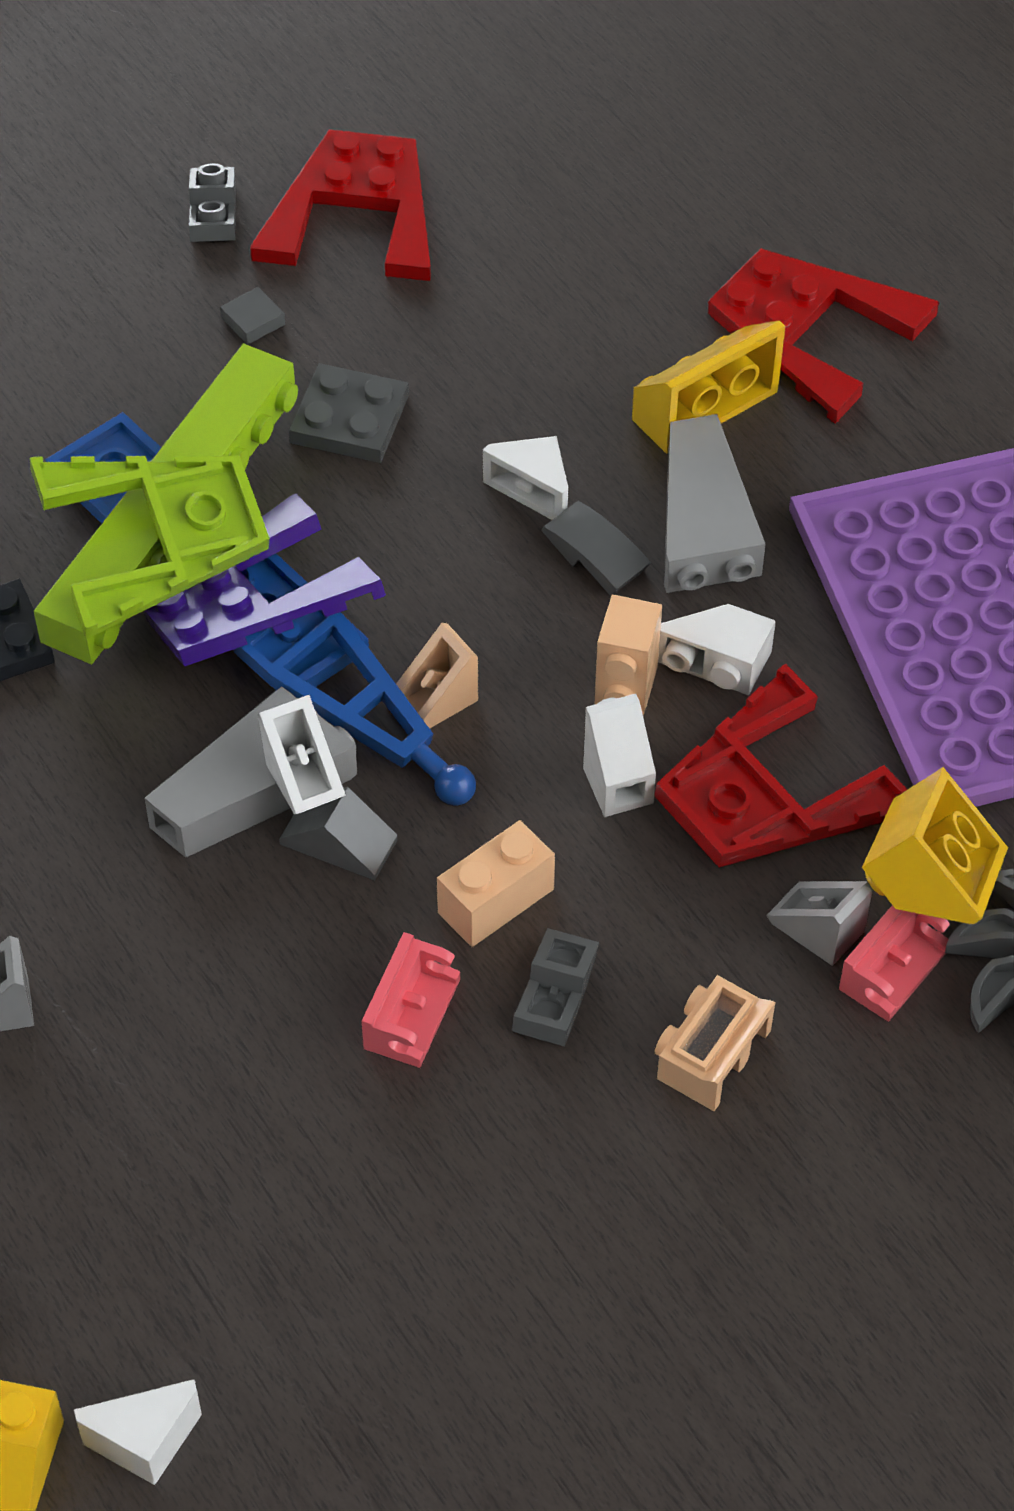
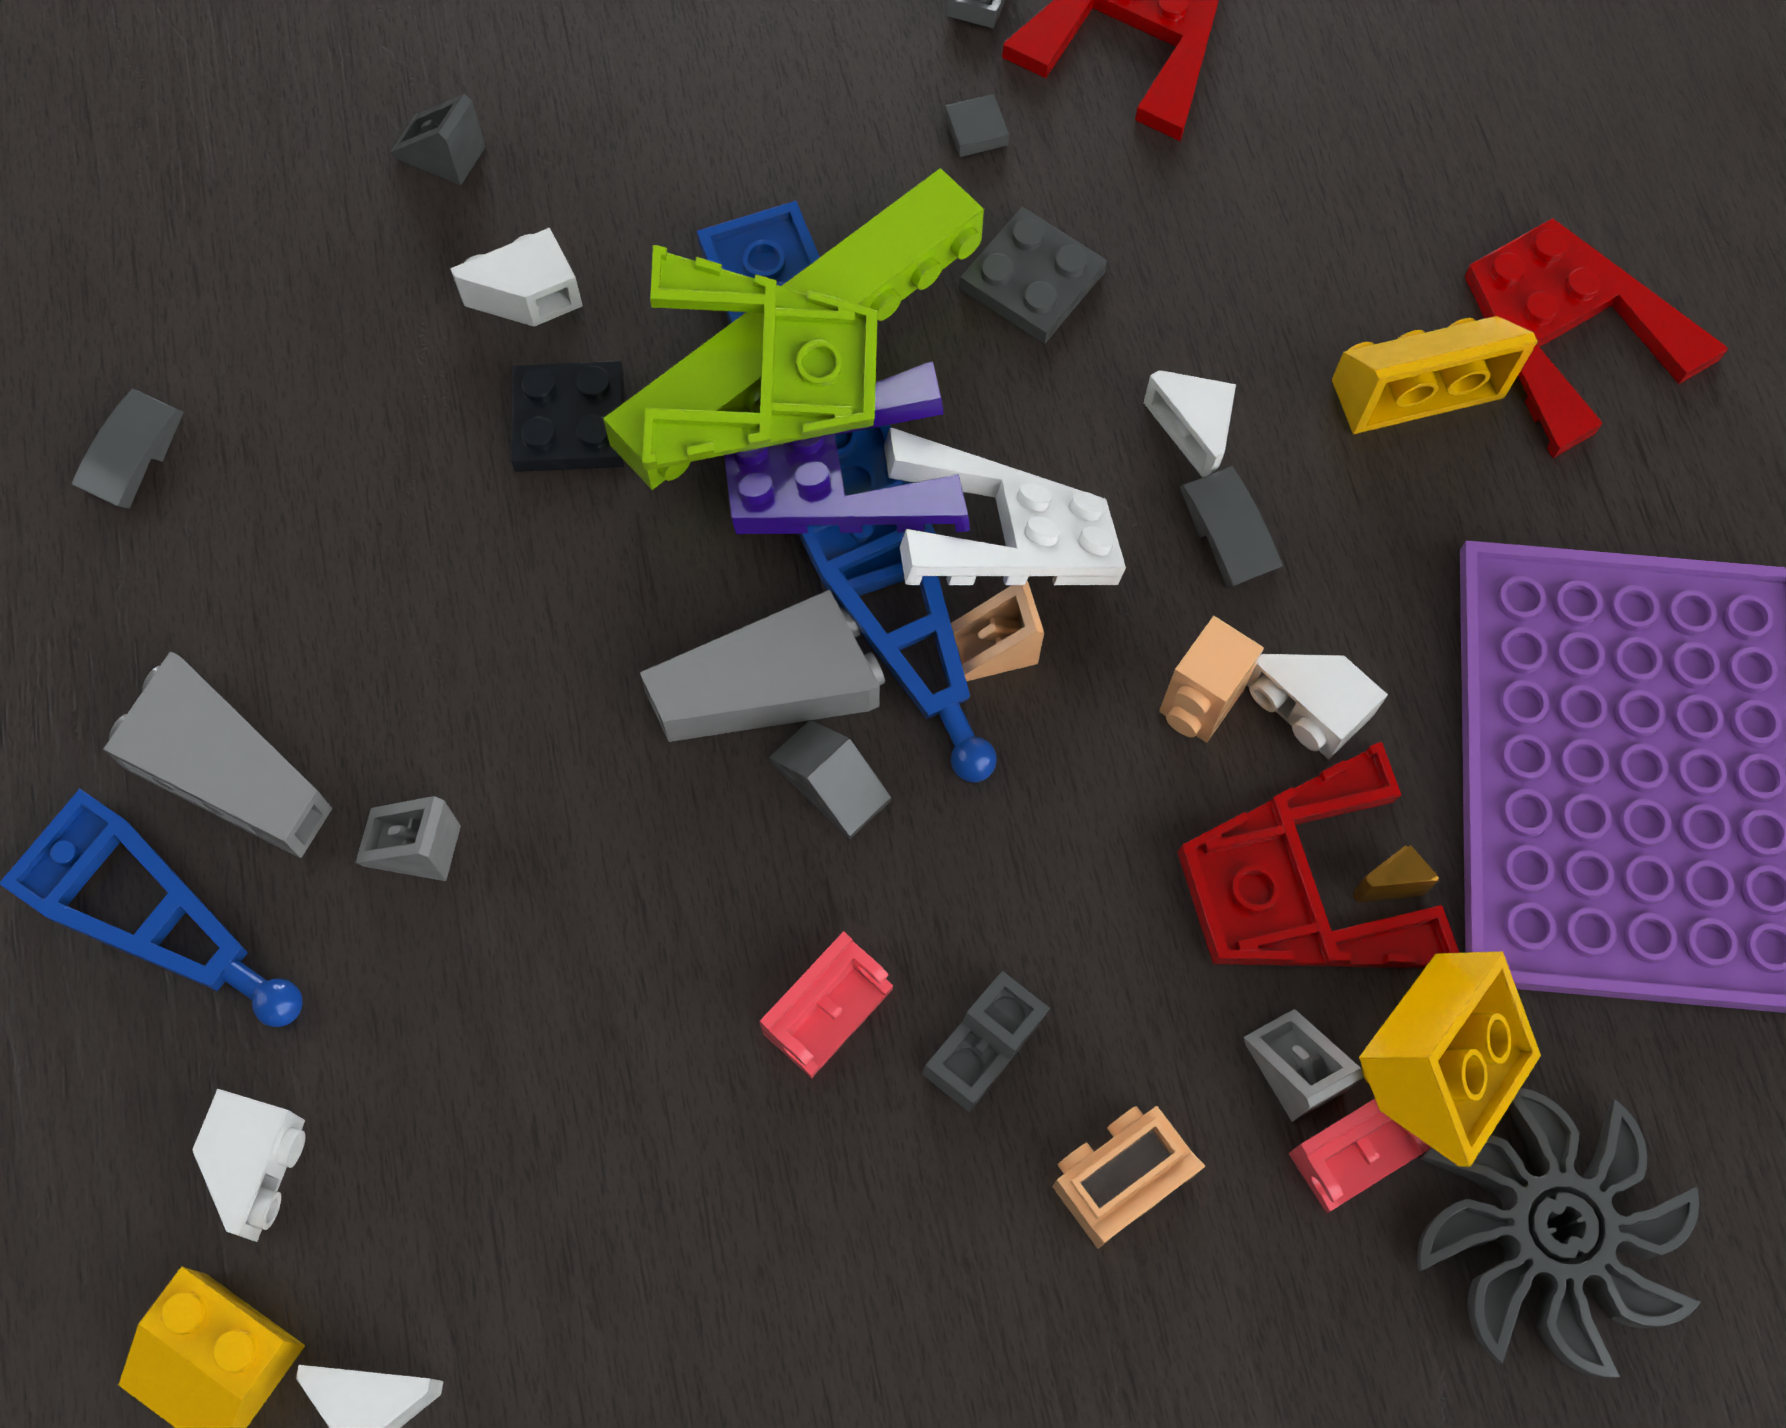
camera: 20 degrees right, 15 degrees up
(299, 755) = (807, 693): white slope -> none
(430, 583) = (1043, 522): none -> white wing
(495, 883) = (967, 900): light nougat brick -> none
(618, 755) = (1153, 798): white slope -> none
(708, 512) = (1368, 529): light grey slope -> none
(840, 756) = (1398, 877): none -> pearl gold slope

